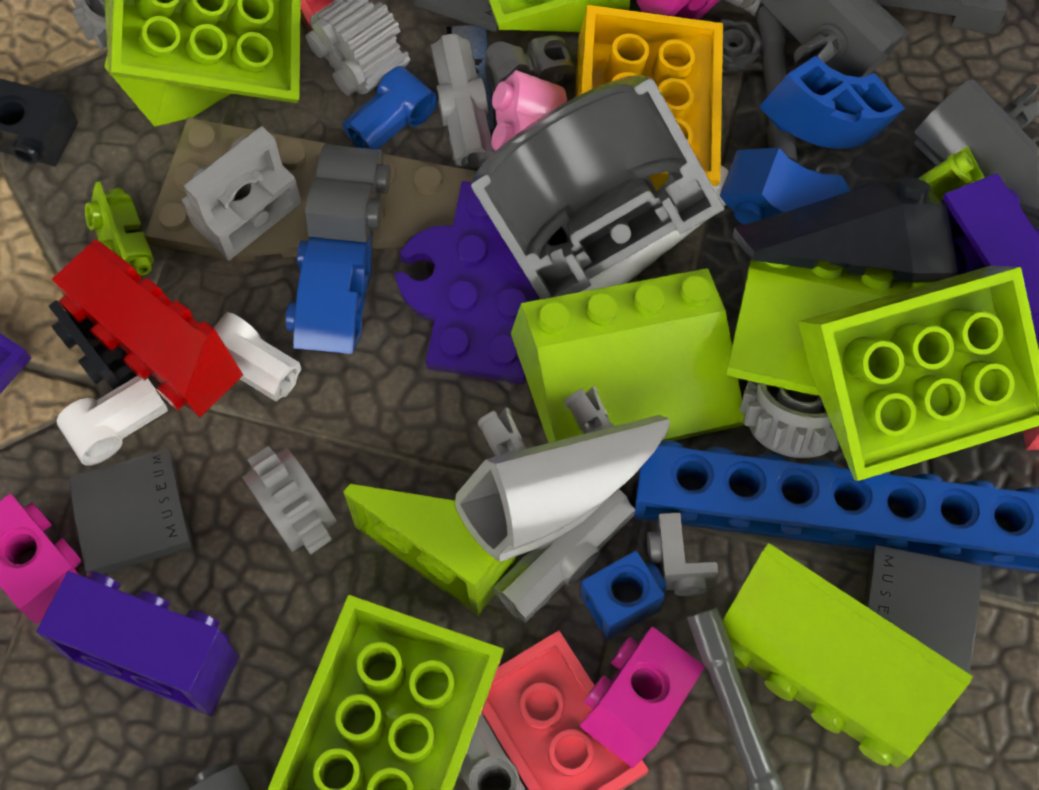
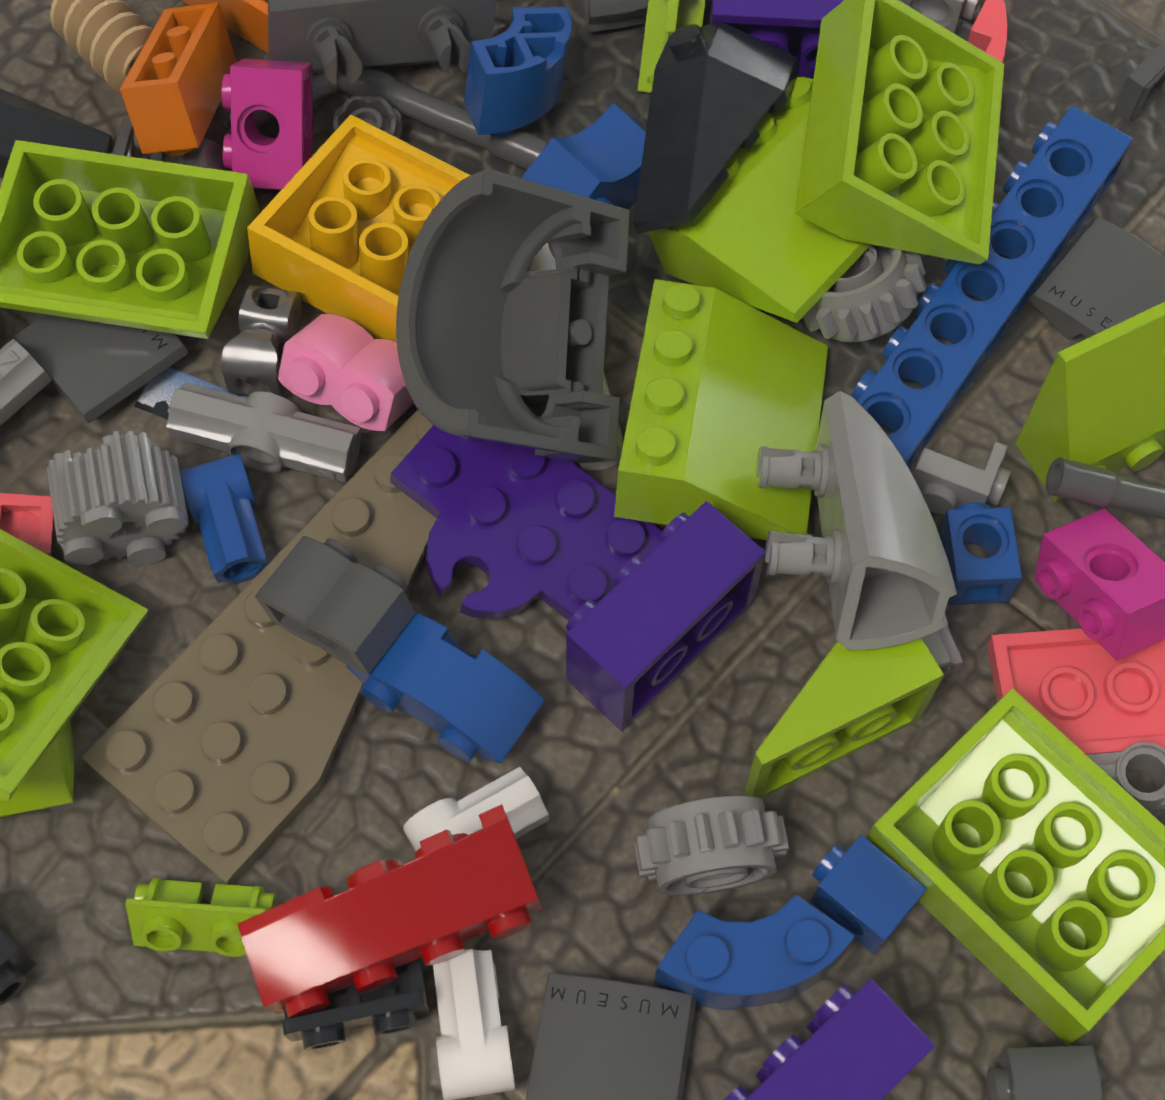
camera: 65 degrees left, 0 degrees up
(235, 580) = (754, 961): none -> blue brick
(247, 170) = (267, 726): light grey brick -> none
(309, 621) = (865, 892): none -> blue brick
(439, 389) = (661, 613): none -> dark purple brick

